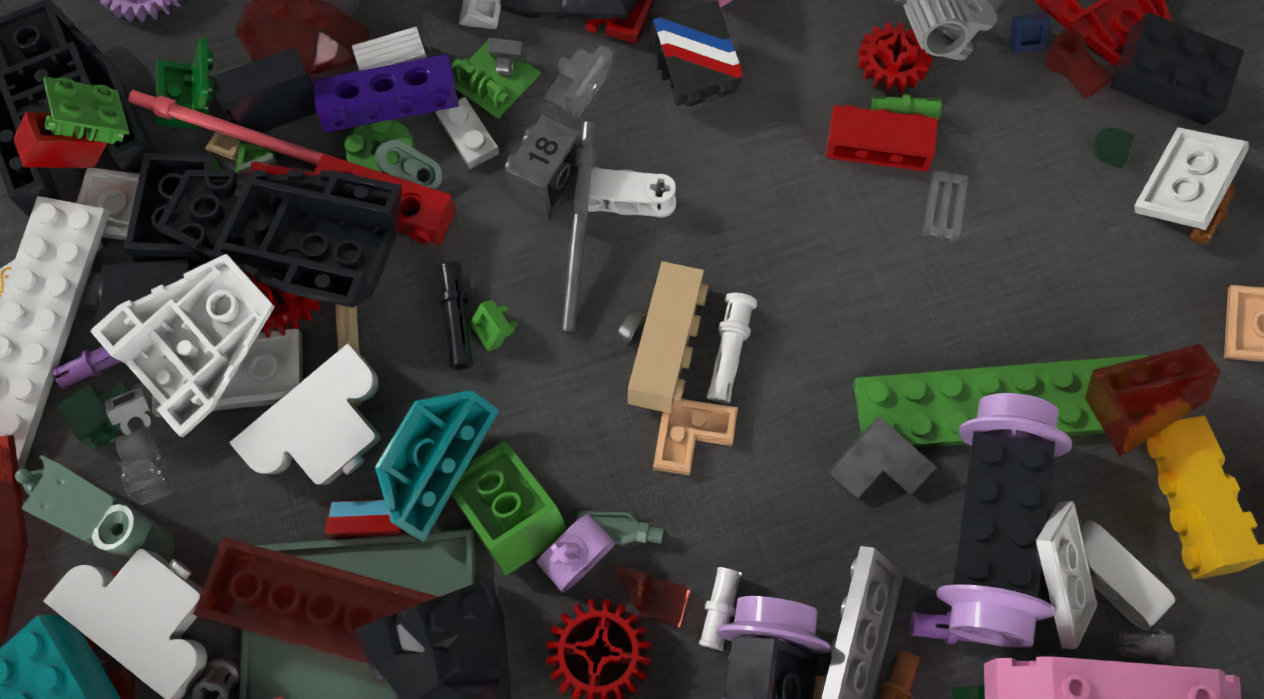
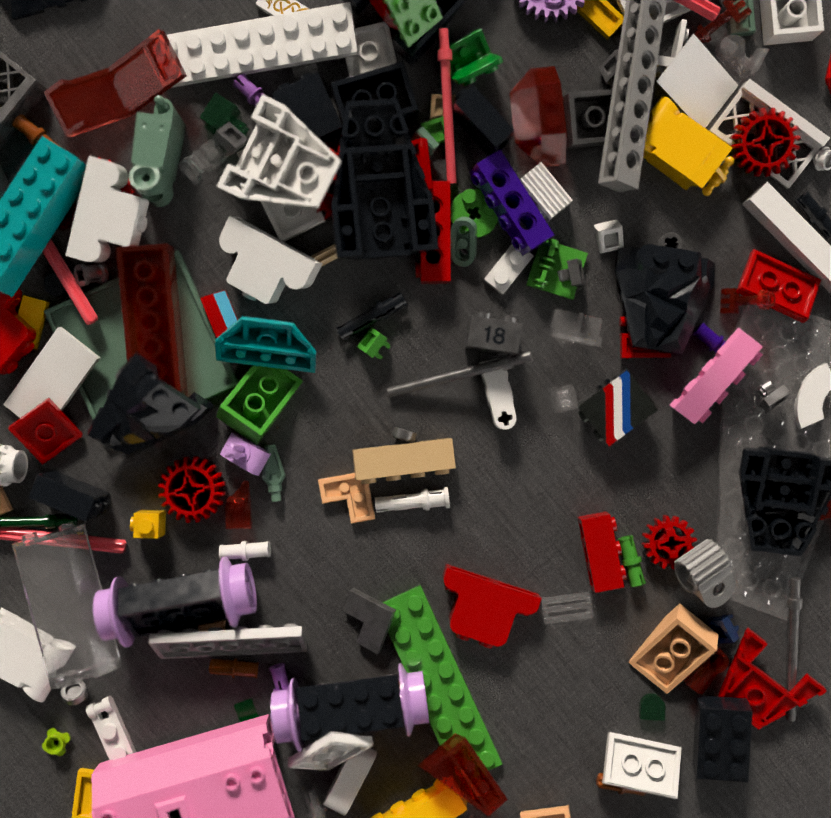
camera: 65 degrees right, 20 degrees up
(662, 122) = (563, 398): none -> clear tile
(910, 302) = (485, 606): none -> red brick
(1040, 93) = (675, 649): none -> light nougat slope

